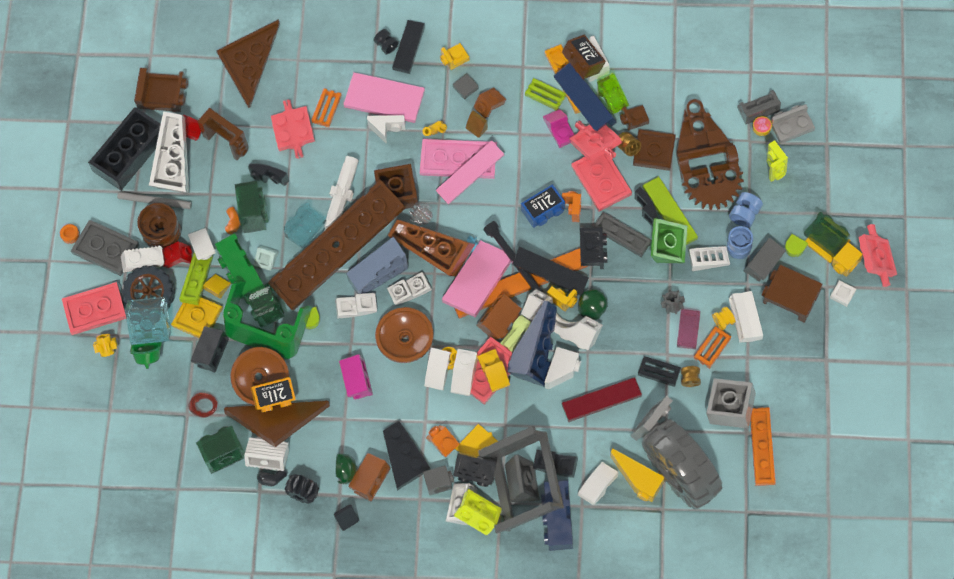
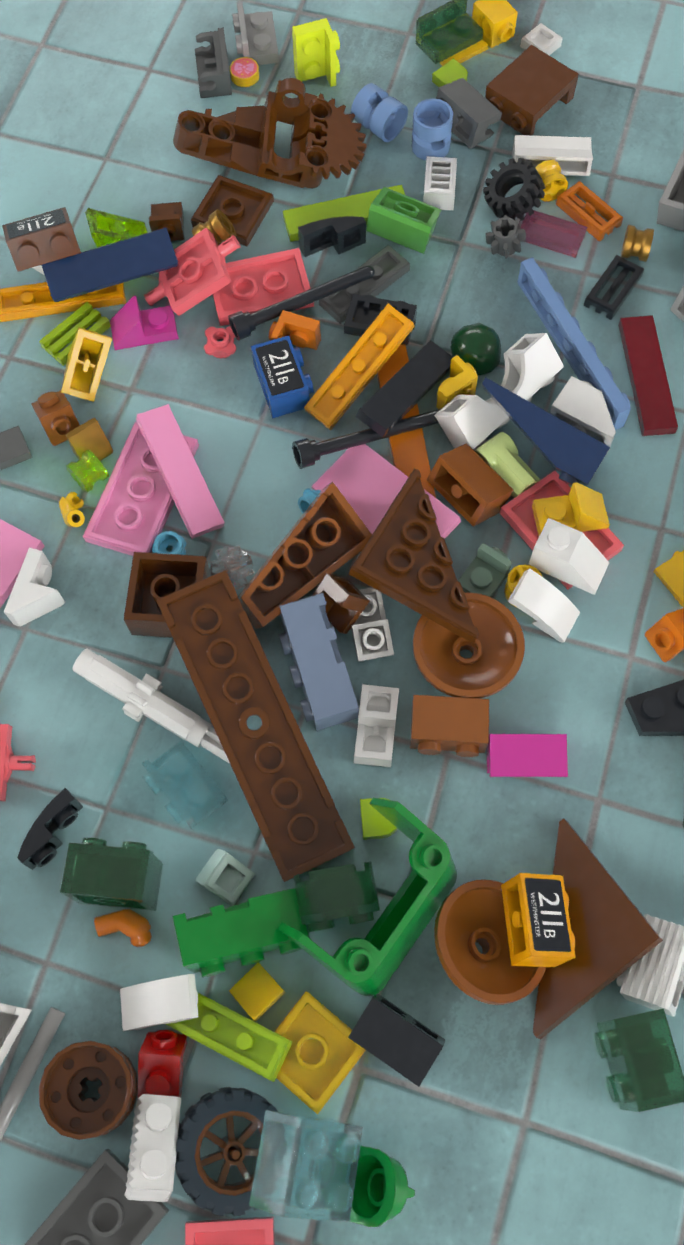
camera: 80 degrees left, 0 degrees up
(196, 398) = (517, 1107): clear red piece -> none
(362, 337) = (449, 725): none -> dark orange brick
(414, 269) = (343, 602): none -> reddish brown panel
(427, 177) = (169, 539): none -> medium azure plate
(440, 294) = (413, 563): none -> reddish brown tile
(450, 337) = (486, 571): none -> sand green bracket
(459, 128) = (87, 471): none -> clear neon green wheel
(519, 106) = (85, 364): none -> yellow slope
(557, 243) = (359, 366): none -> light orange tile
(560, 174) = (223, 348): none -> coral plate
(568, 176) = (244, 323): none -> black piece
(603, 358) = (570, 340): none -> medium blue plate
(700, 305) = (508, 177): none -> black tyre

